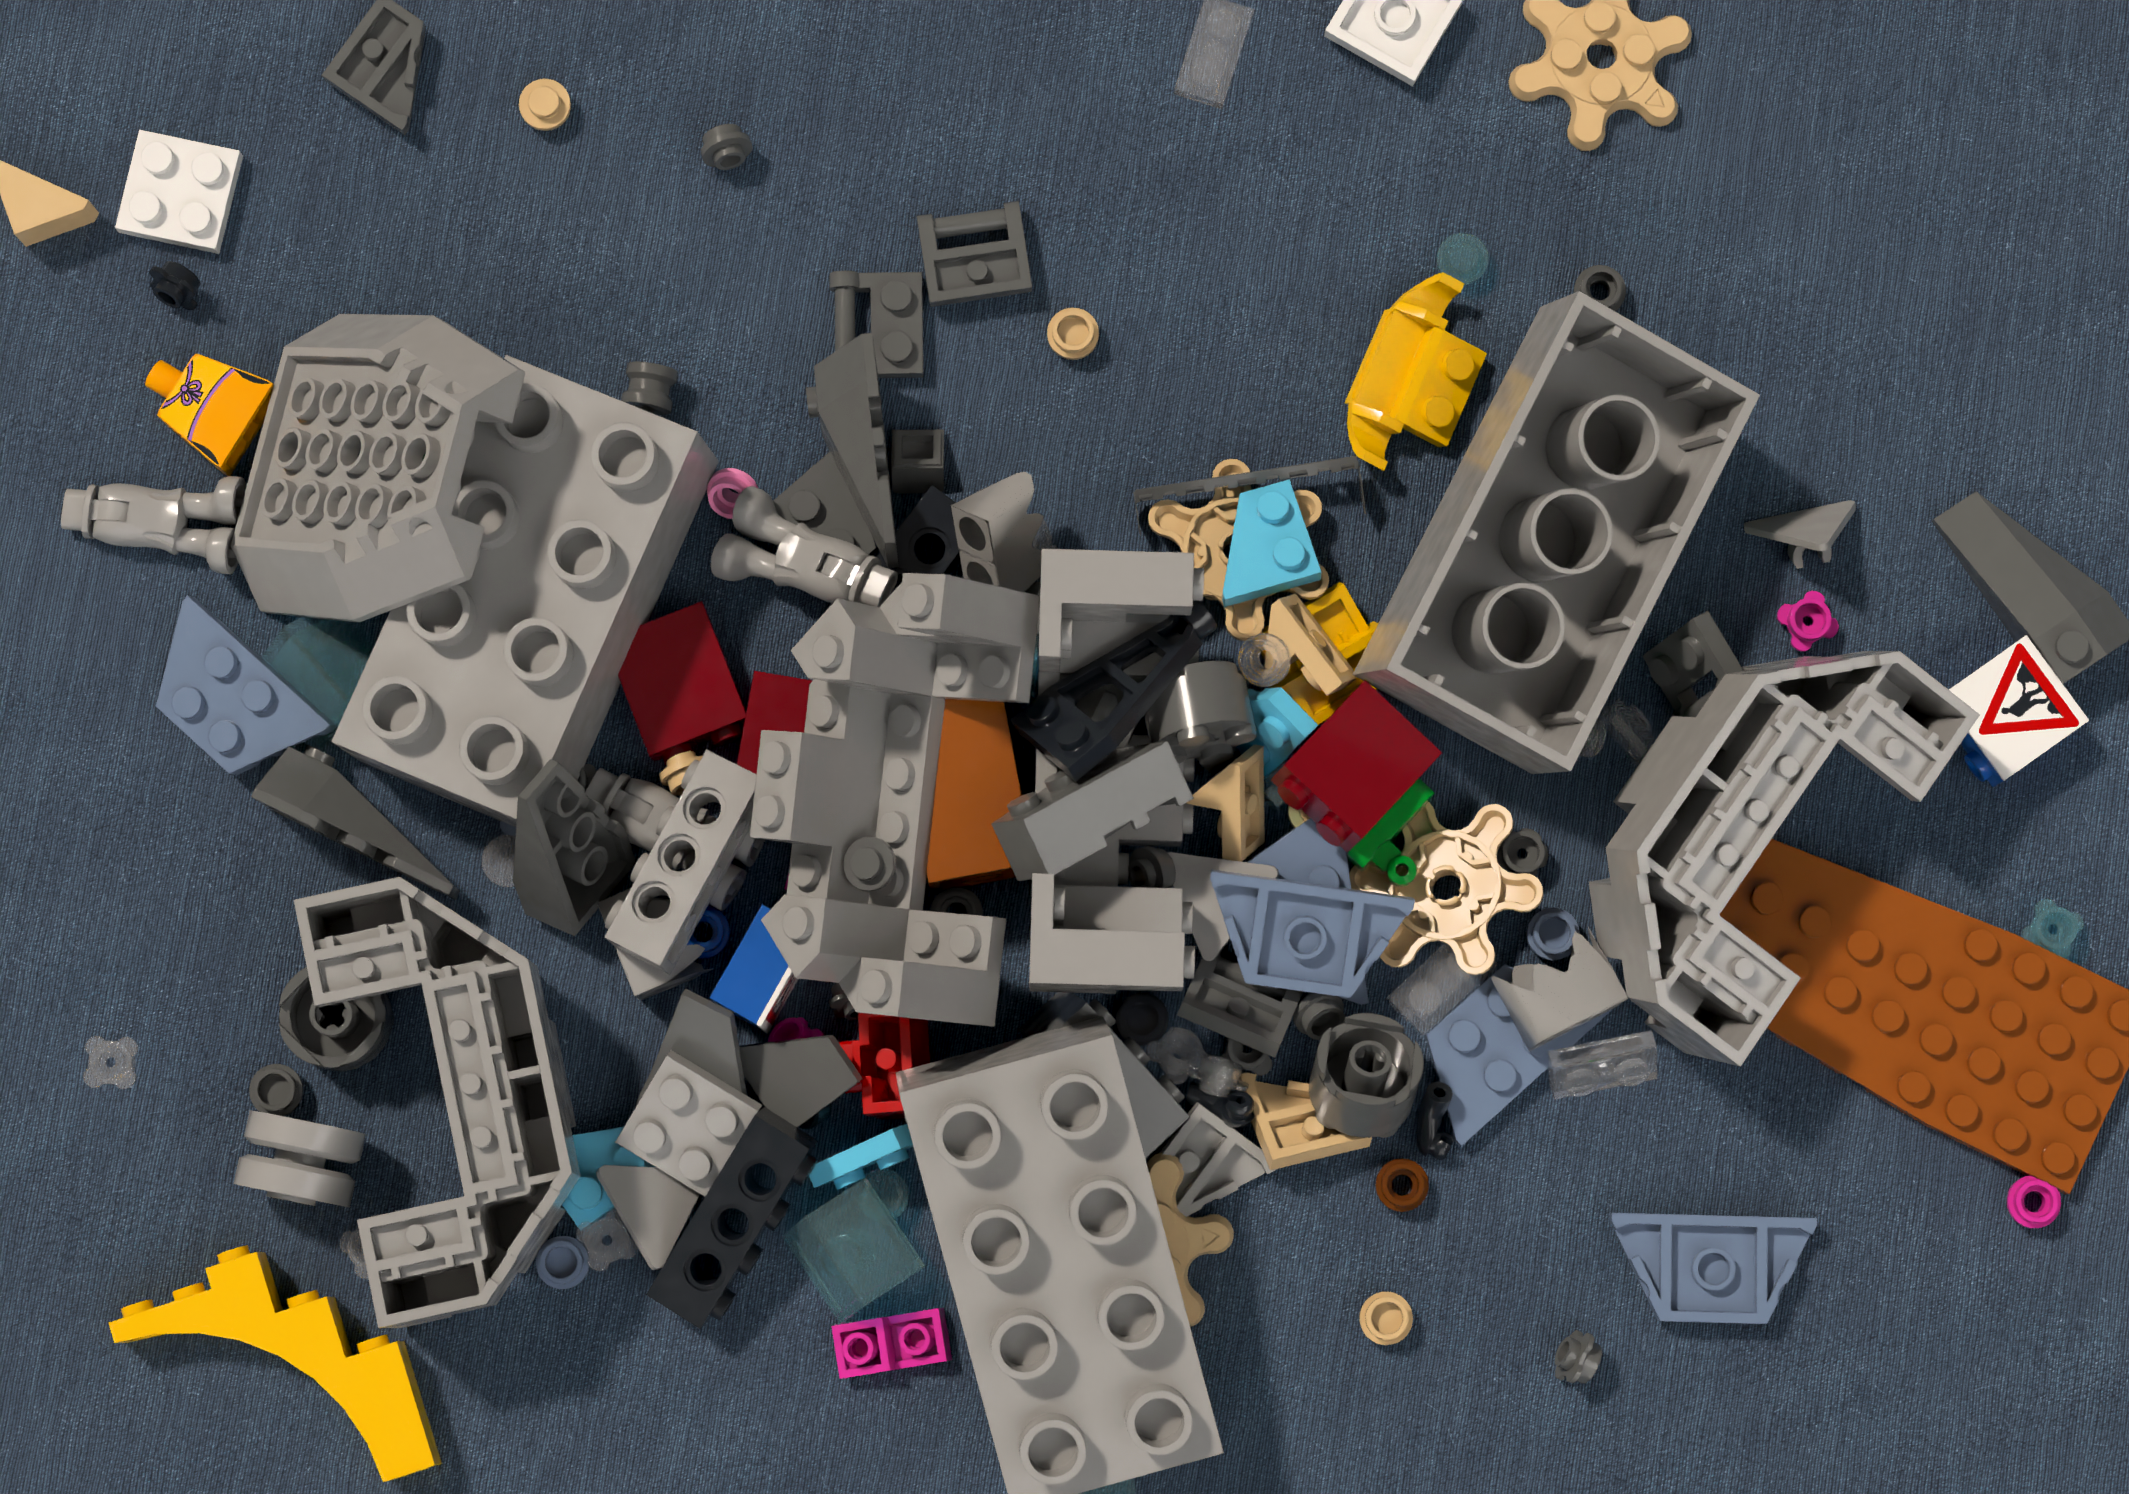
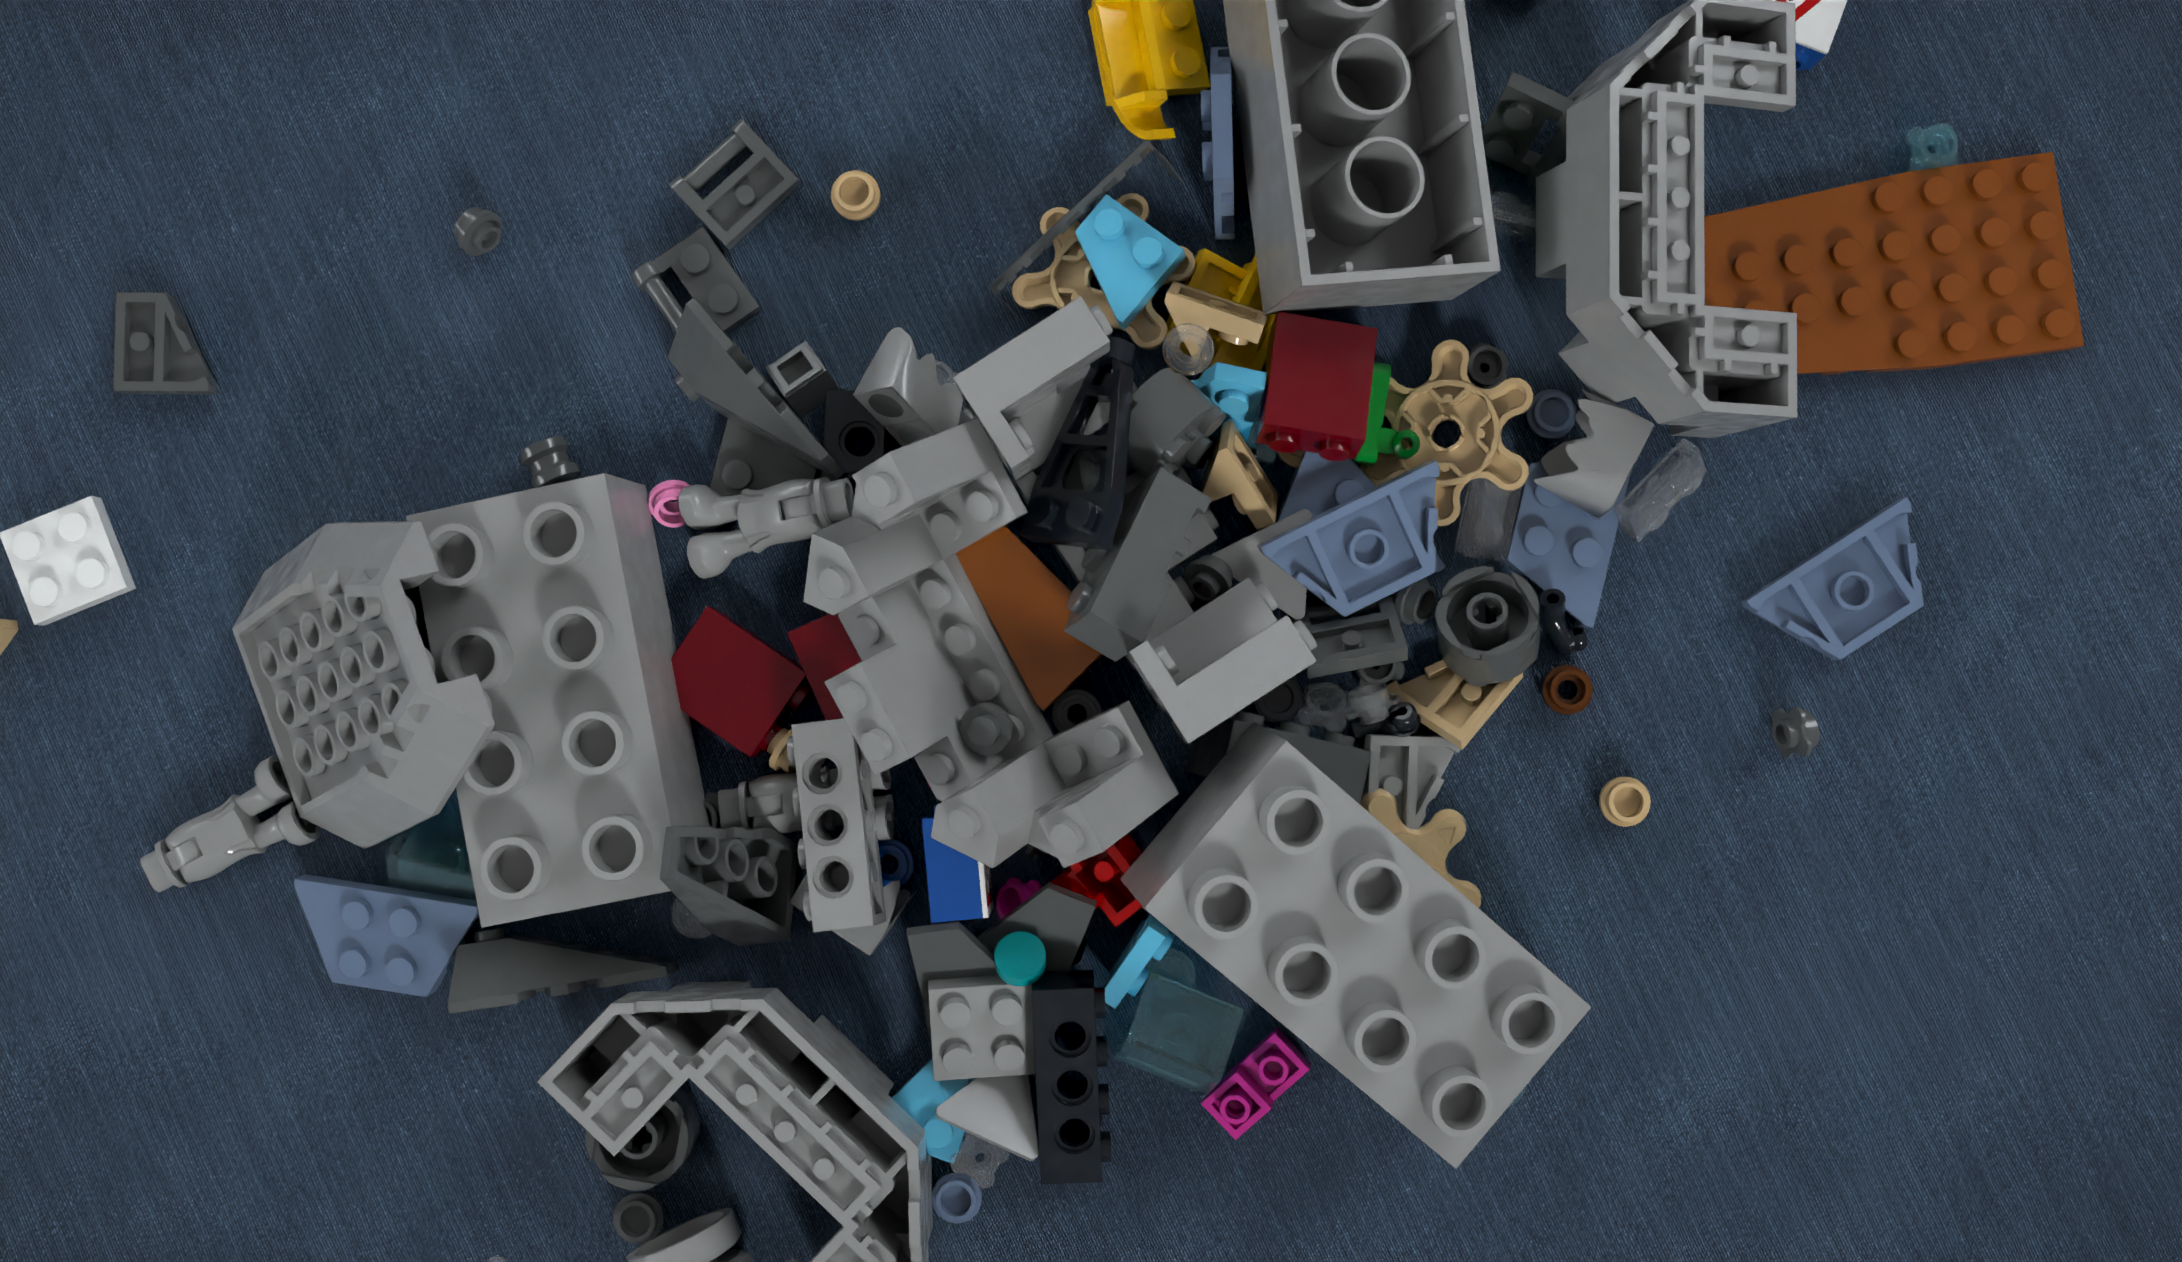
camera: 30 degrees left, 5 degrees up
(175, 285) = (114, 638): black plate -> none
(212, 407) = (209, 716): light orange torso -> none
(544, 104) = (311, 294): tan plate -> none
(763, 1084) = (1020, 958): none -> teal tile
(1409, 512) = (1218, 154): none -> sand blue wing
(1822, 622) = (1582, 21): dark pink plate -> none
(2049, 1206) = (2072, 366): dark pink plate -> none

